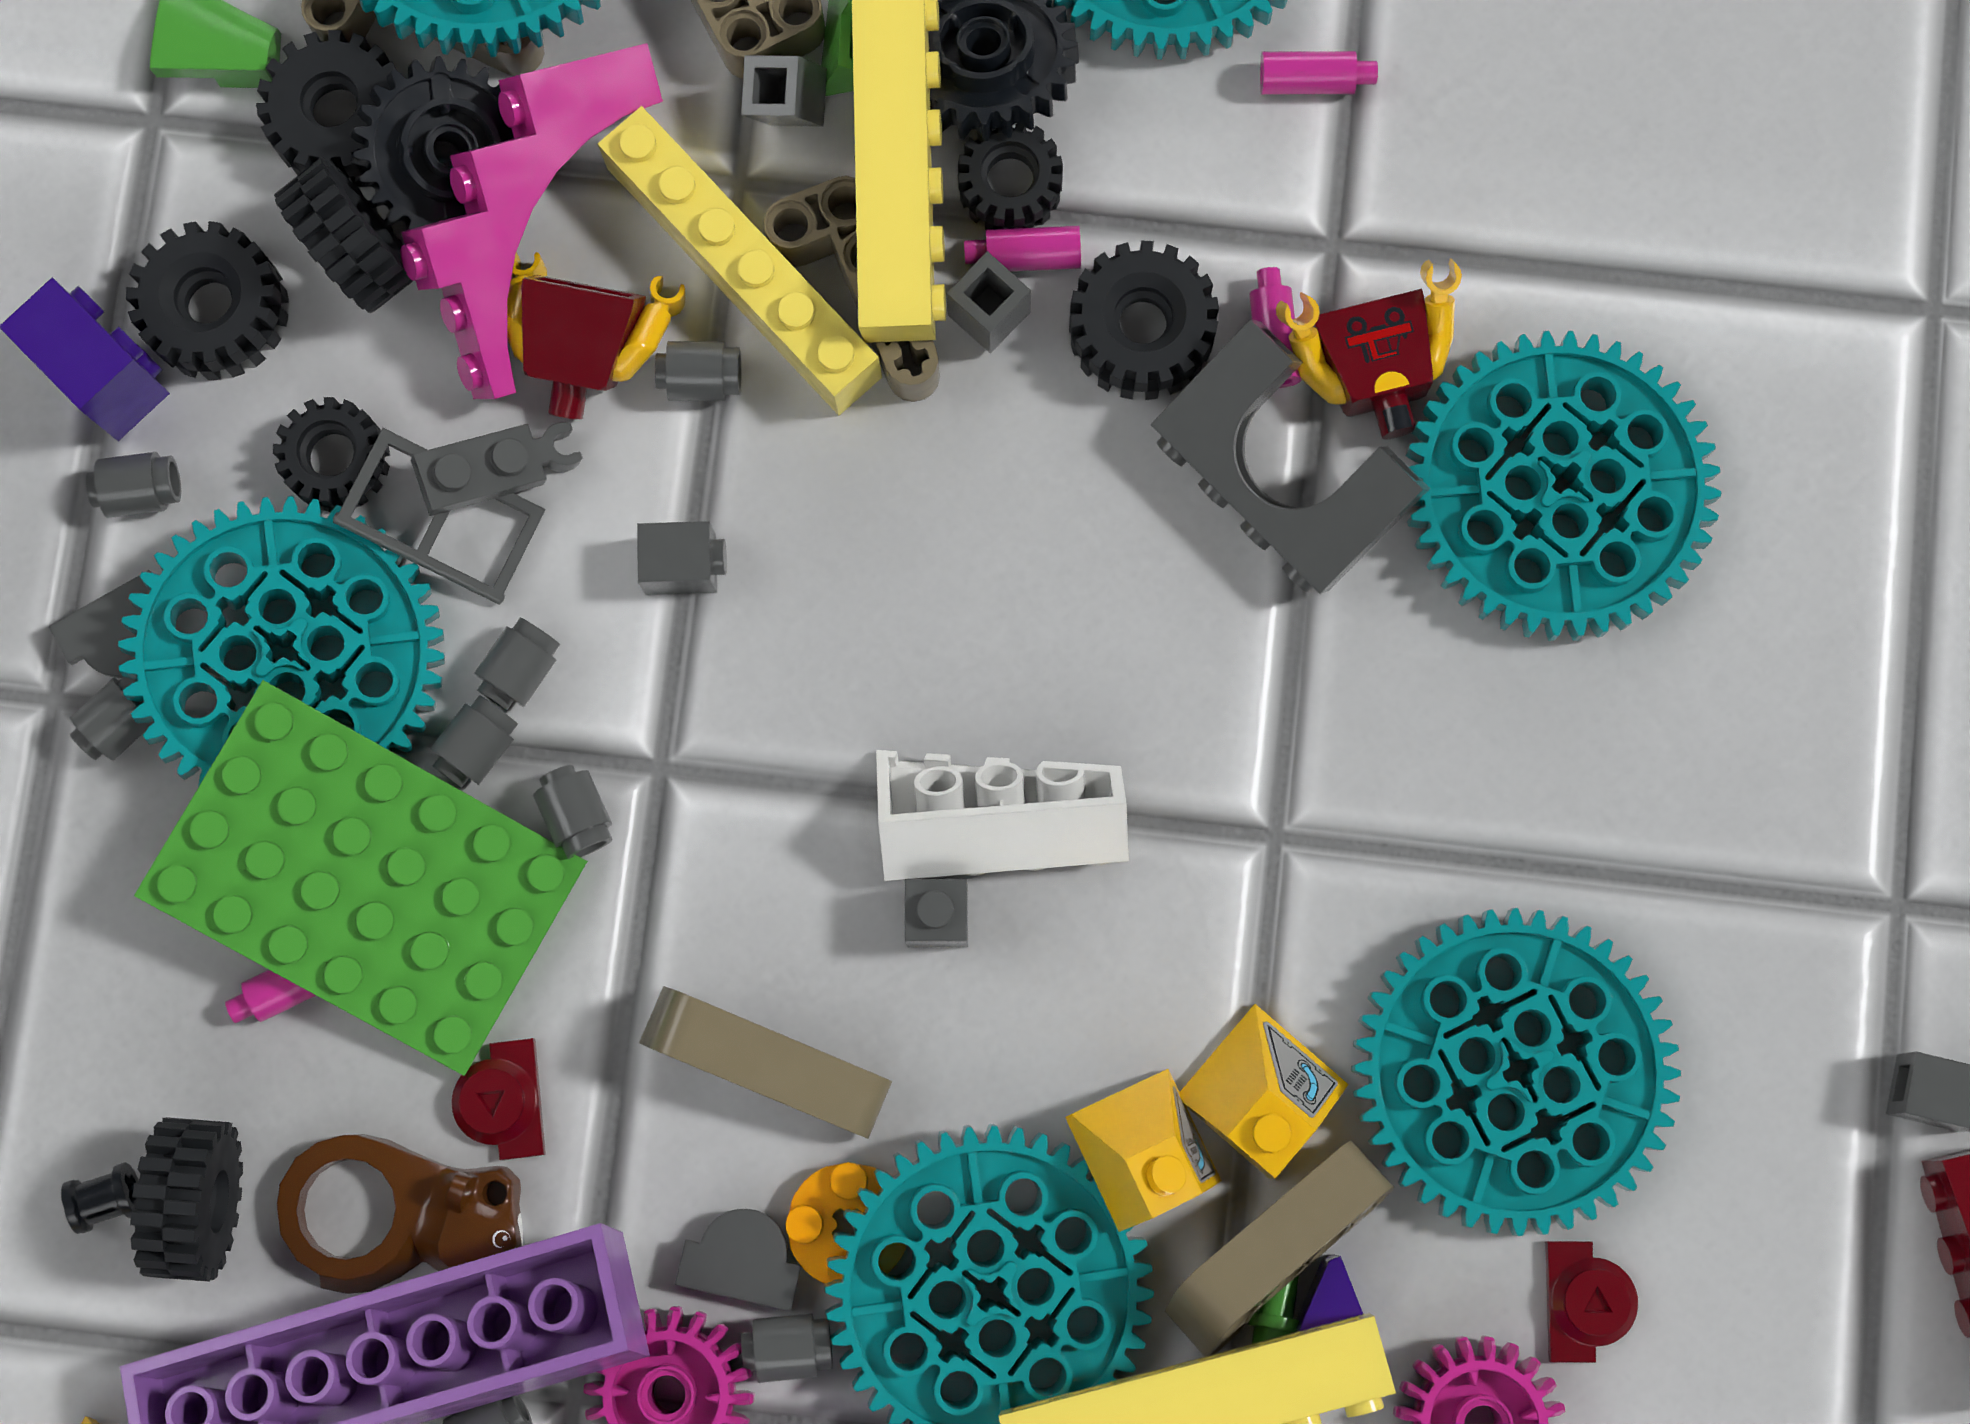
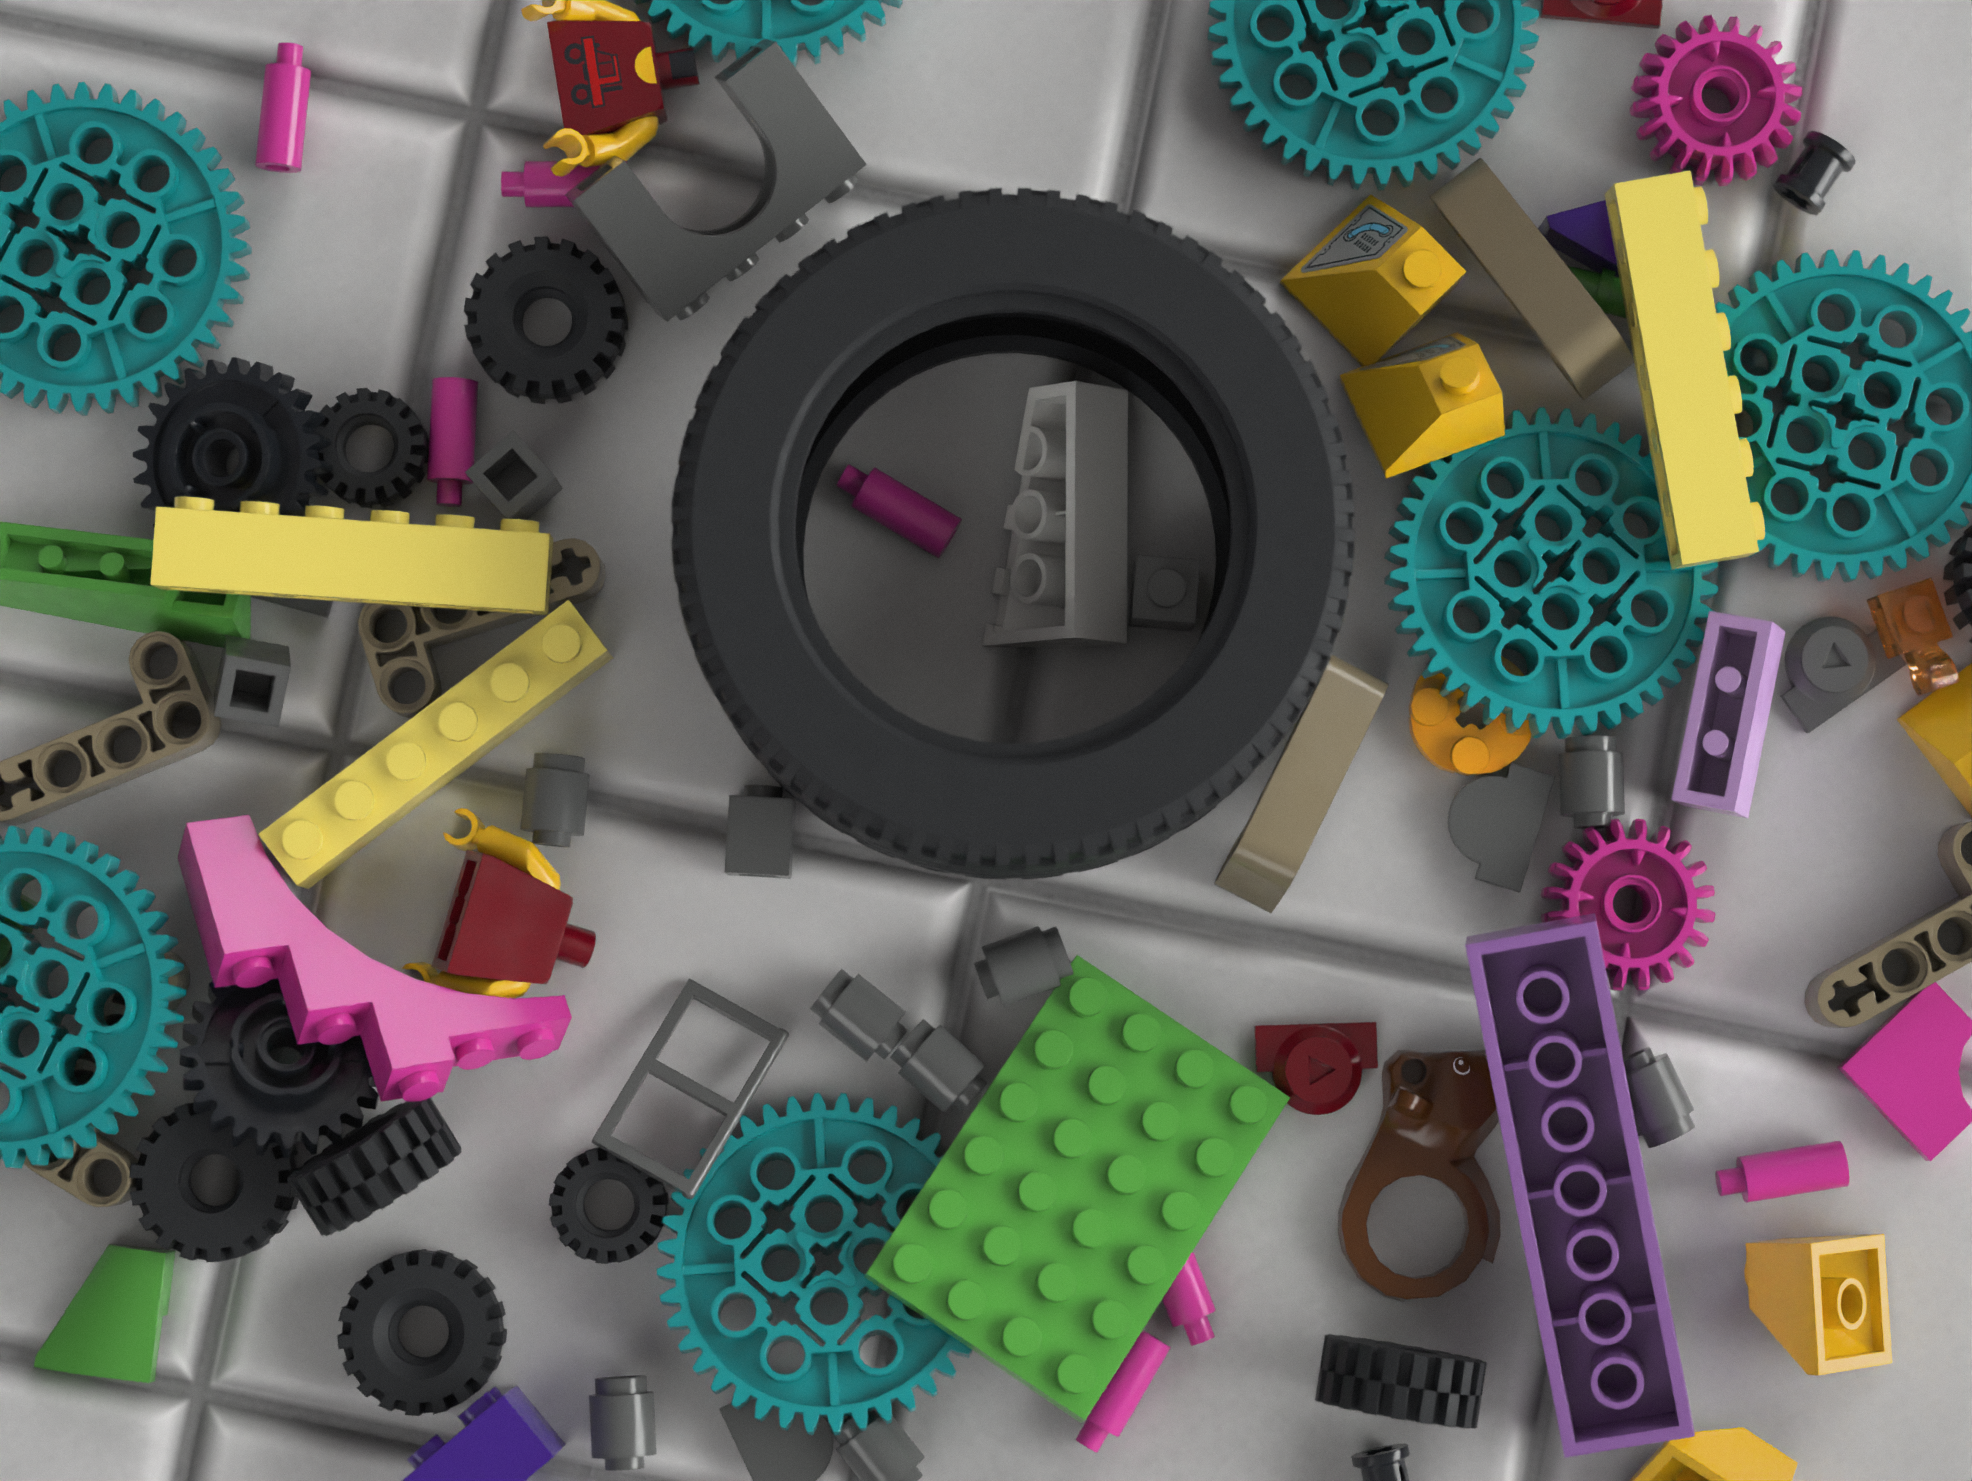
camera: 95 degrees left, 5 degrees up
(181, 941) = (1123, 1391): none -> dark pink cylinder
(489, 466) = (642, 1030): dark grey plate -> none
(911, 506) = (1057, 285): none -> black tyre
(997, 661) = (900, 509): none -> dark pink cylinder

